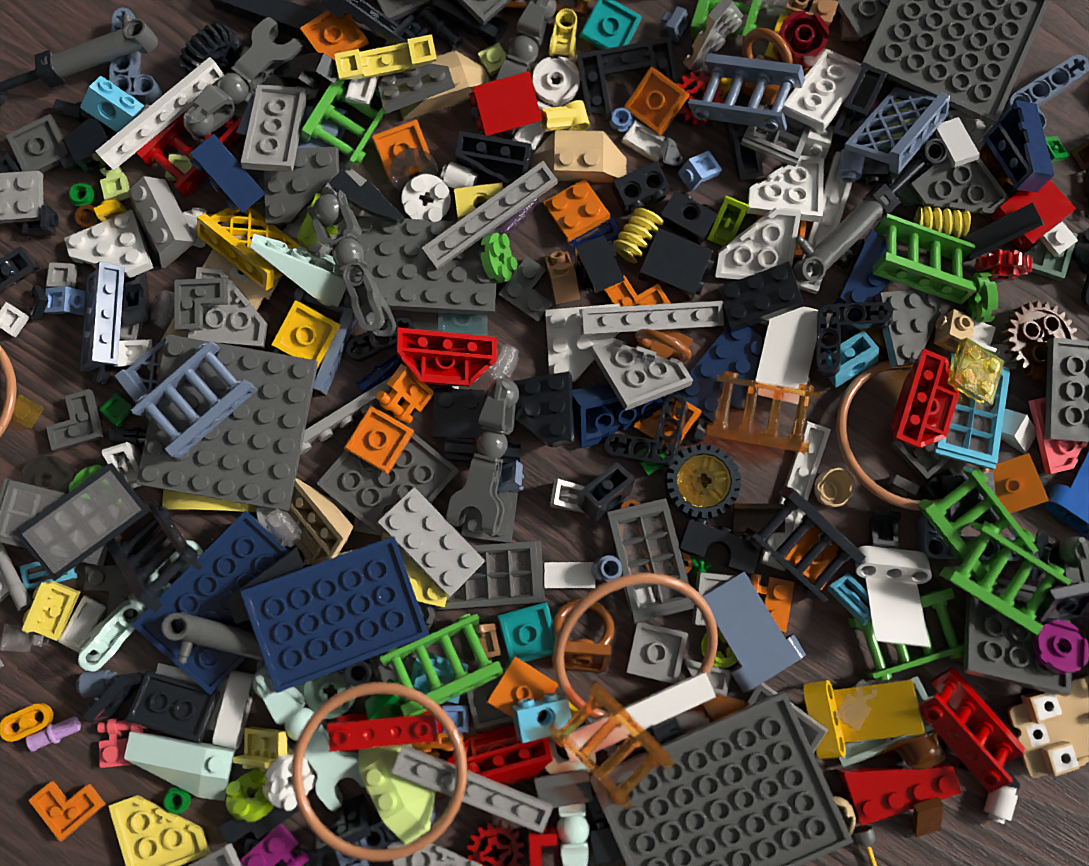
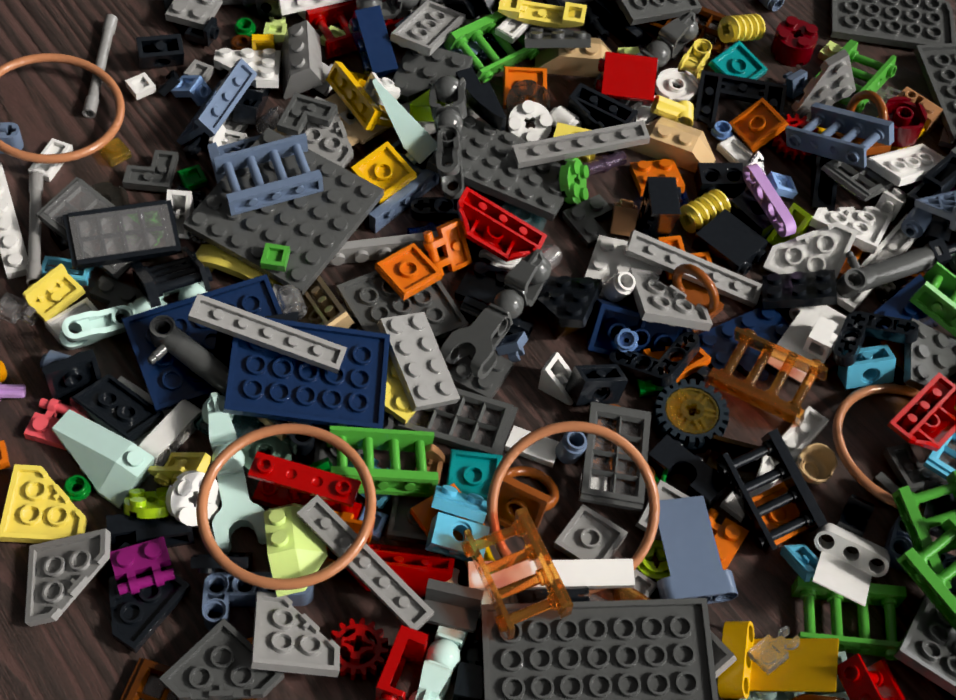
camera: 15 degrees right, 25 degrees down
(245, 489) = (275, 257): none -> bright green tile
(261, 226) = (387, 83): none -> white brick
(279, 603) = (267, 333): none -> light grey plate
(531, 686) = (466, 506): none -> medium azure plate
(588, 373) = (619, 286): none -> white brick
(616, 434) = (623, 334): none -> medium blue plate
(700, 203) = (769, 200): none -> lavender beam
(800, 349) = (821, 338): none -> white brick

